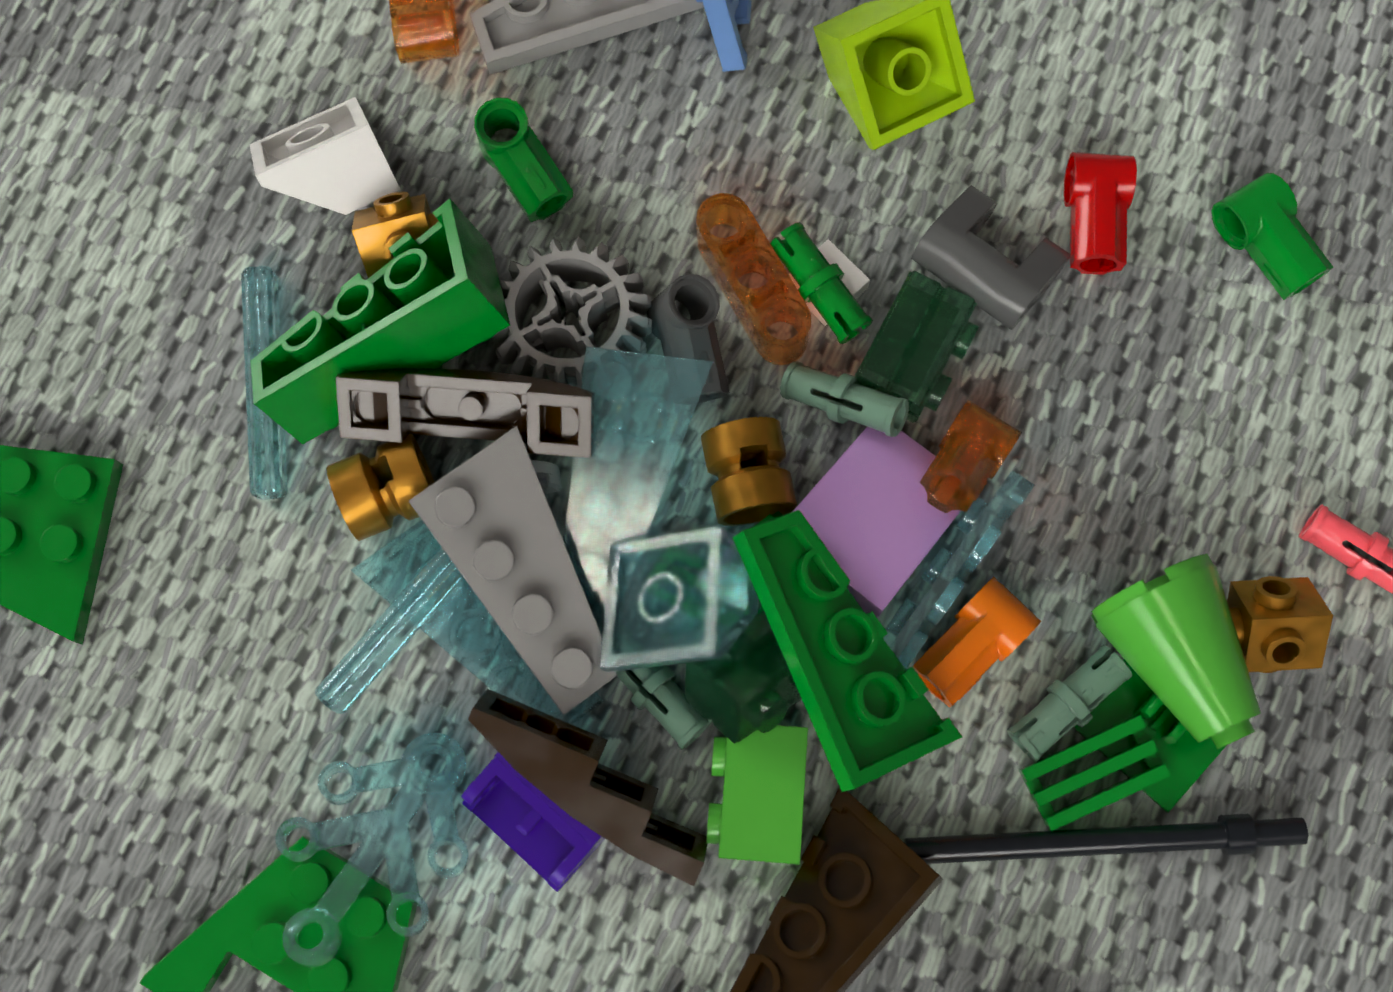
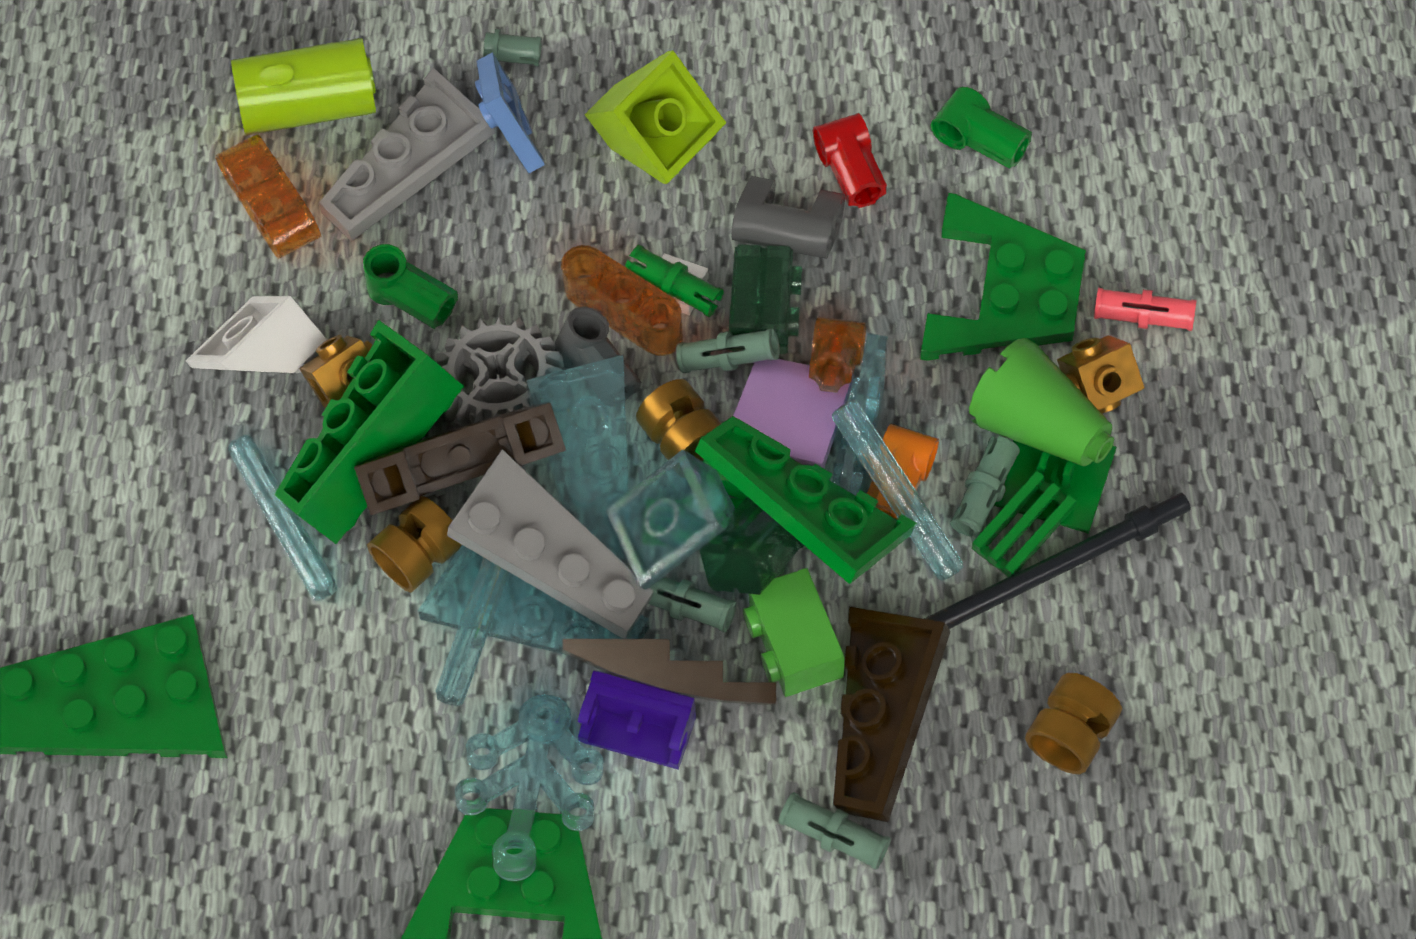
camera: 25 degrees left, 15 degrees down
(958, 675) = (897, 489): none -> clear light blue axle
(1236, 463) = (1027, 286): none -> green wing

